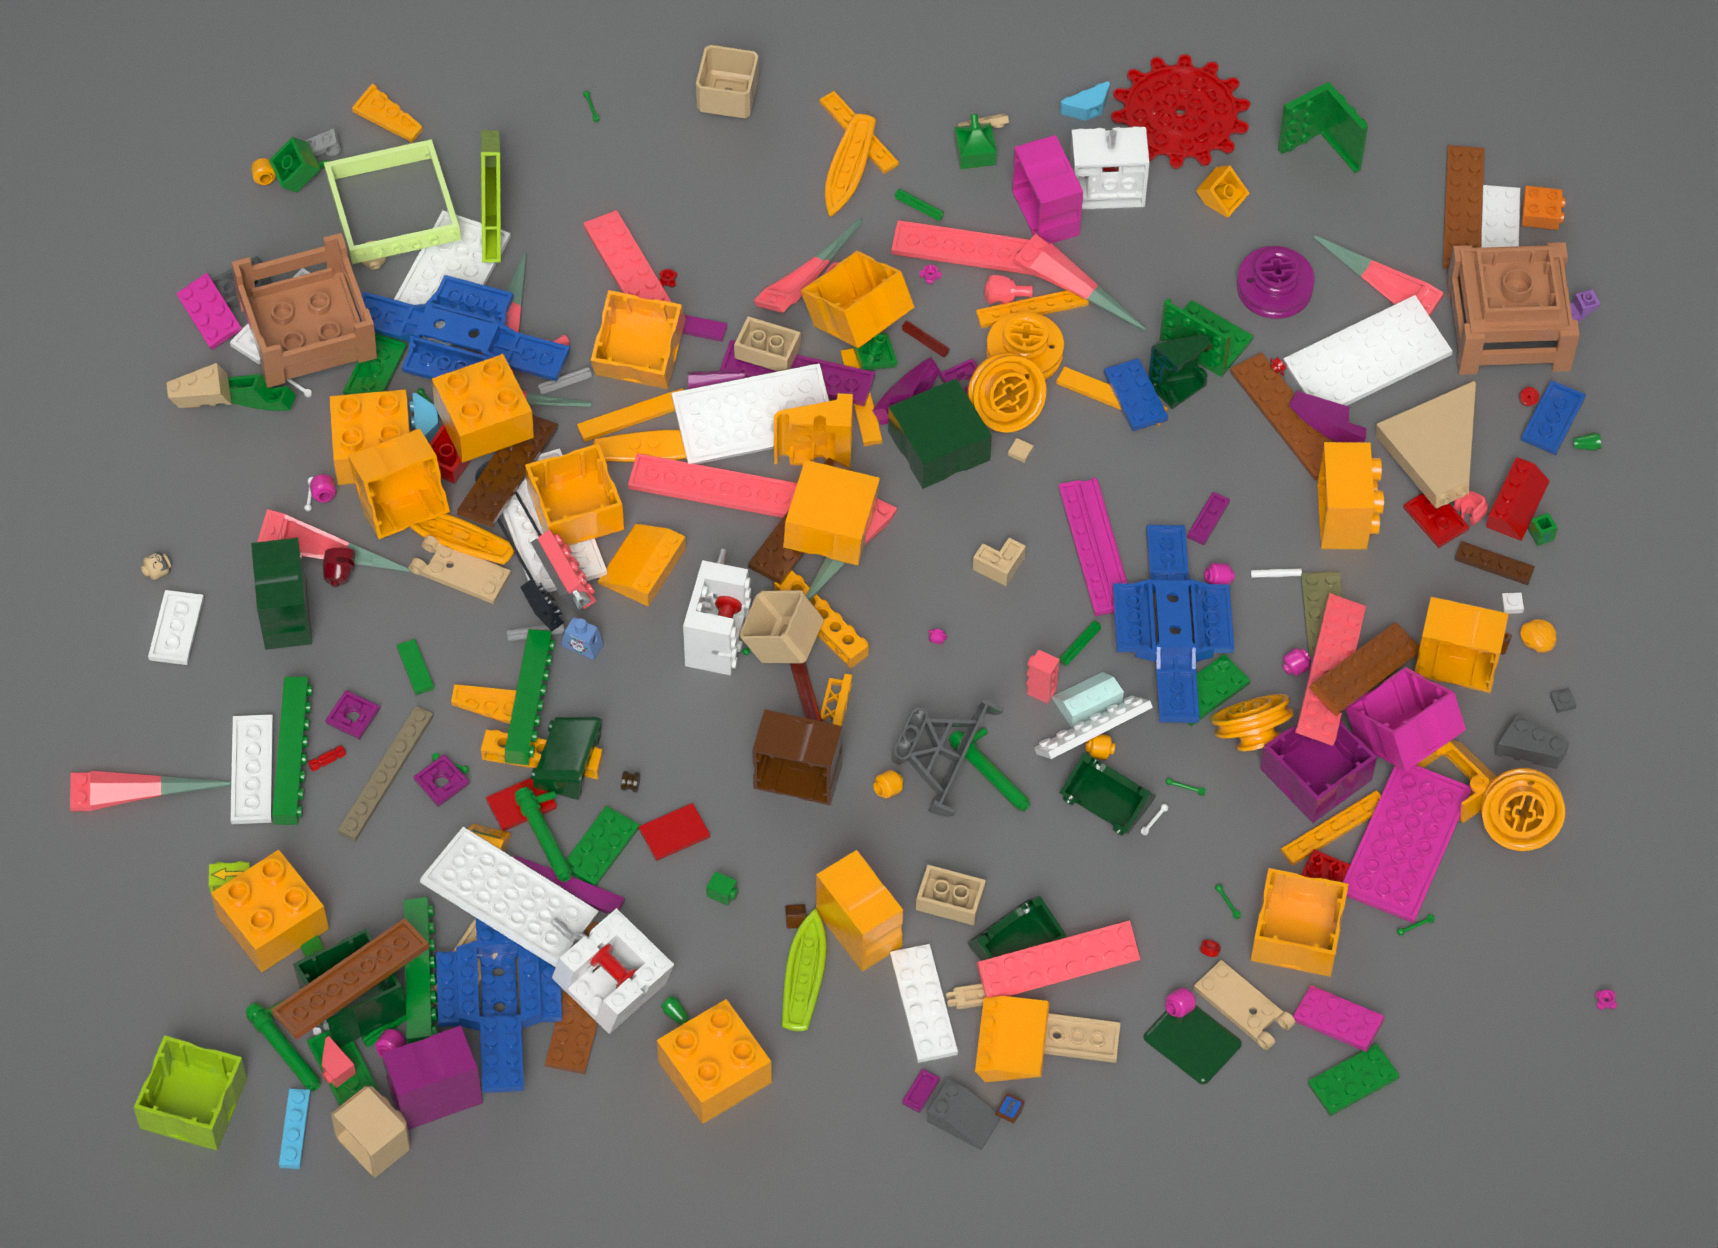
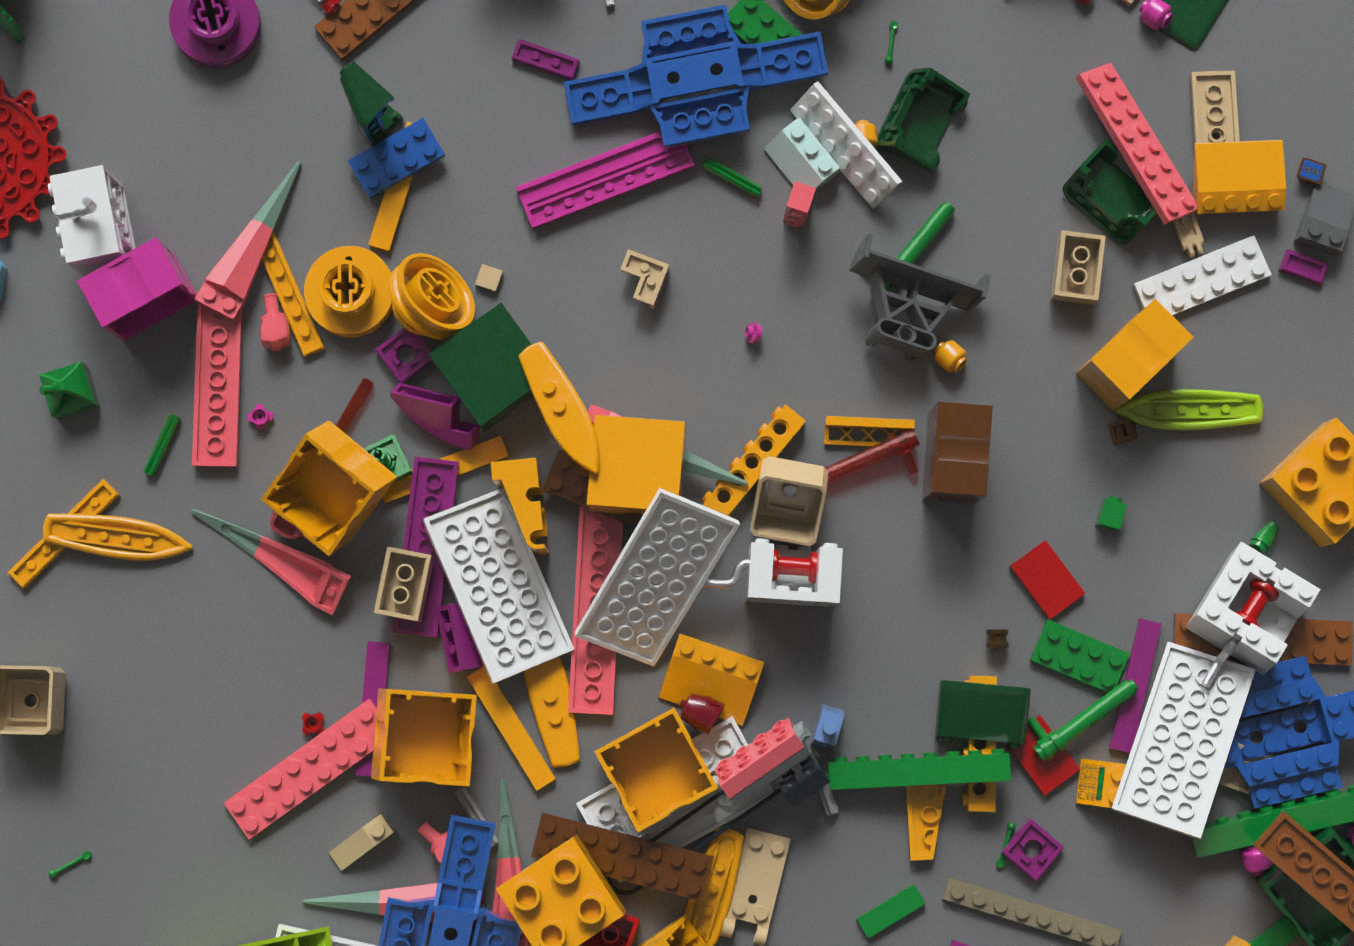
camera: 100 degrees left, 25 degrees up
(564, 301) = (362, 841): none -> tan slope
(615, 539) = (701, 712): none -> dark red helmet
(734, 512) = (657, 577): none -> white plate
(892, 457) = (561, 406): none -> light orange piece
(996, 120) = (30, 384): tan hinge -> none
(1164, 807) = (922, 62): white hinge -> none
(1219, 574) = (623, 37): dark pink head -> none
(1222, 190) = (92, 96): light orange slope -> none
(1226, 338) = (302, 90): green bracket -> none

